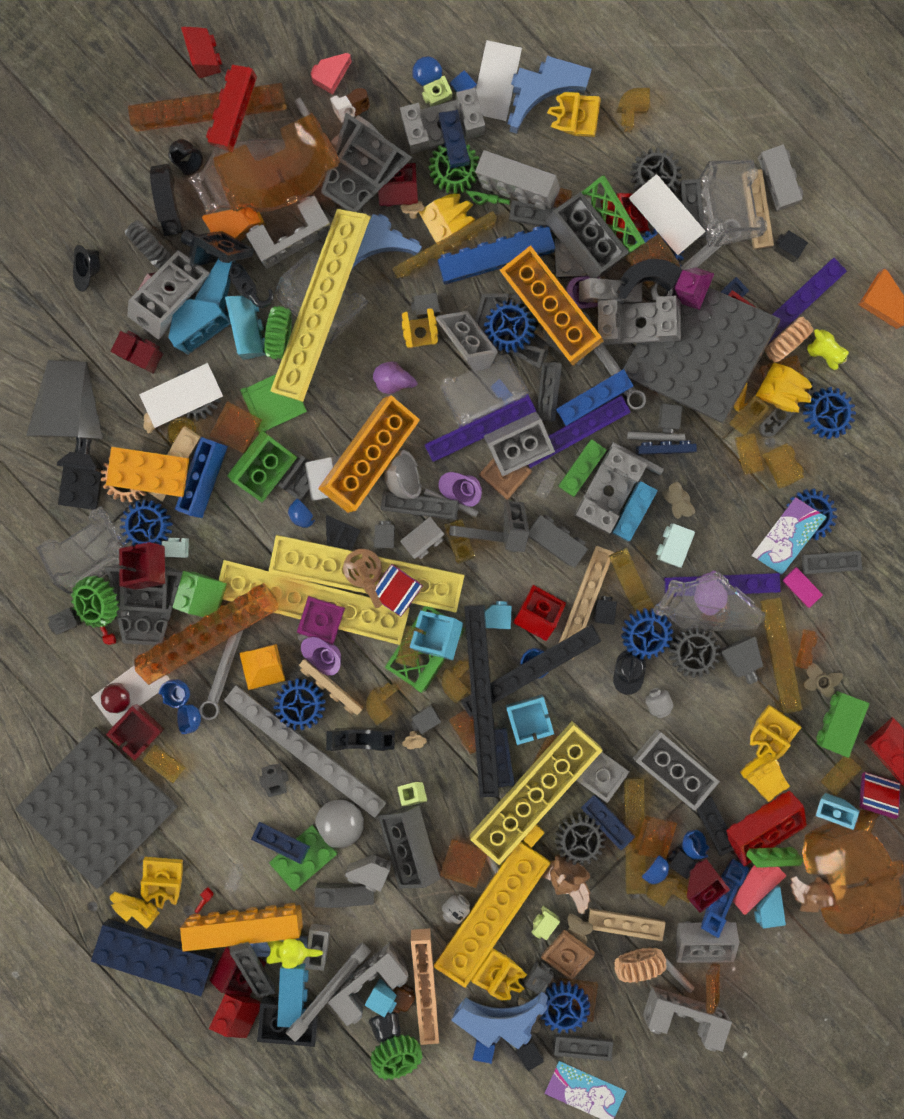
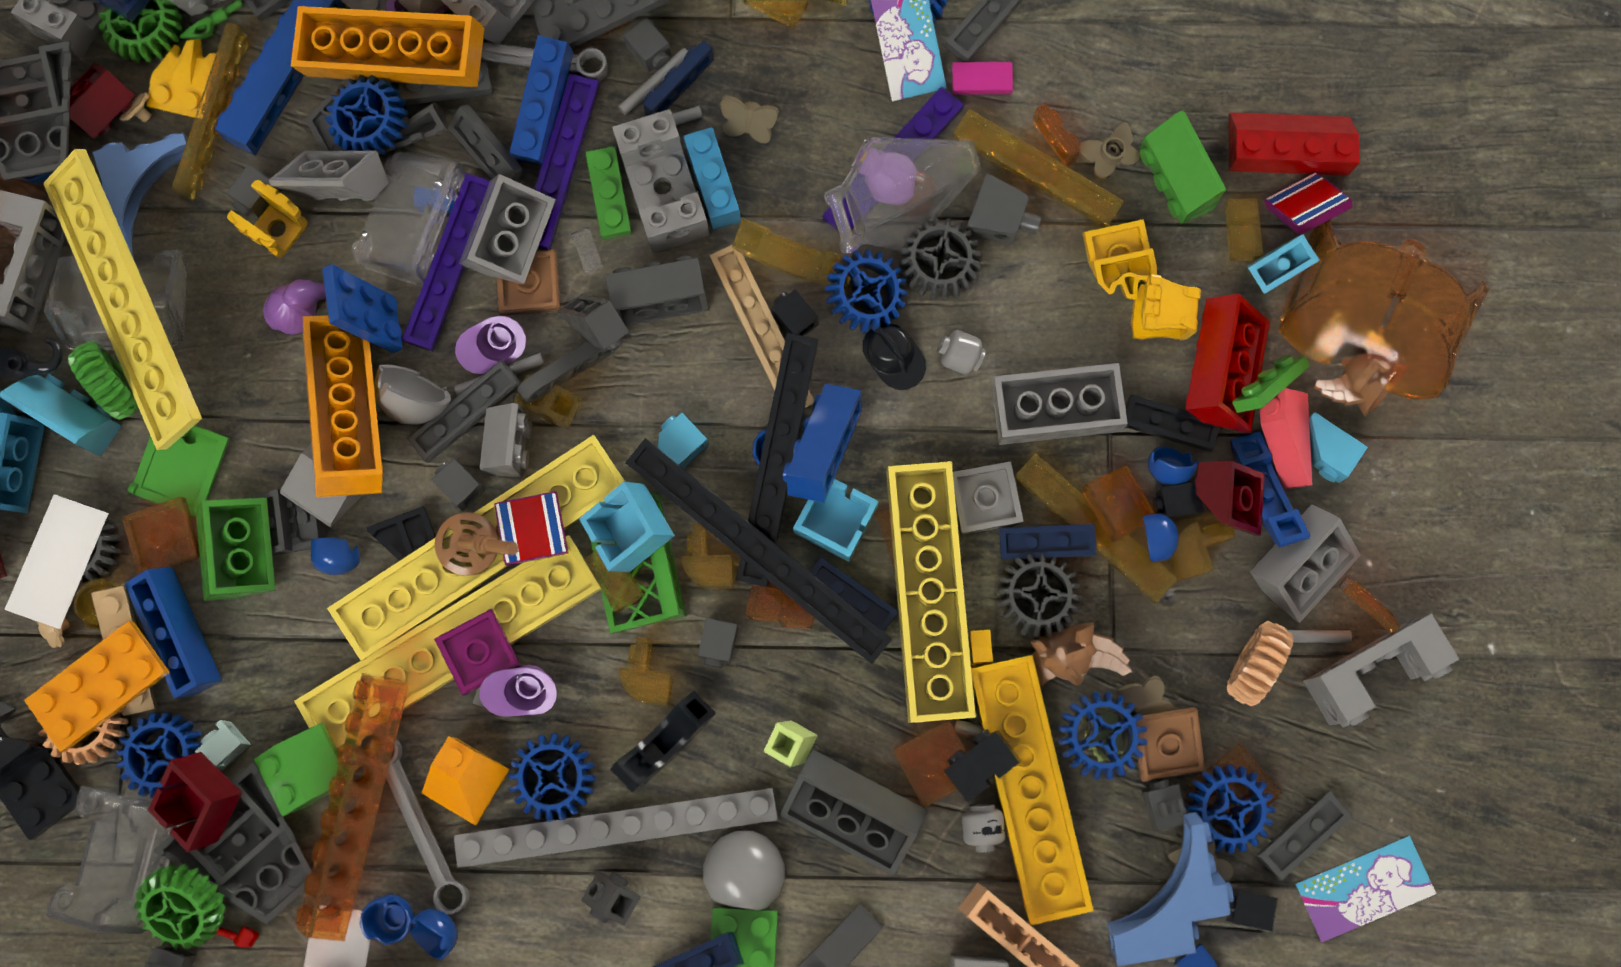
camera: 40 degrees left, 10 degrees down
(337, 693) = (554, 721): tan plate -> none
(369, 871) = (836, 885): light grey slope -> none
(414, 741) = (731, 682): tan plant -> none
(420, 418) = (362, 309): none -> blue plate
(481, 885) = (989, 757): none -> black brick
(499, 975) = (1117, 853): yellow plate -> none
(539, 613) = (724, 392): red slope -> none
(547, 911) = (1110, 749): none -> blue gear
(557, 685) = (823, 443): none -> blue brick
(626, 924) = (1196, 637): tan plate -> none
(675, 545) = (796, 168): light aqua brick -> none

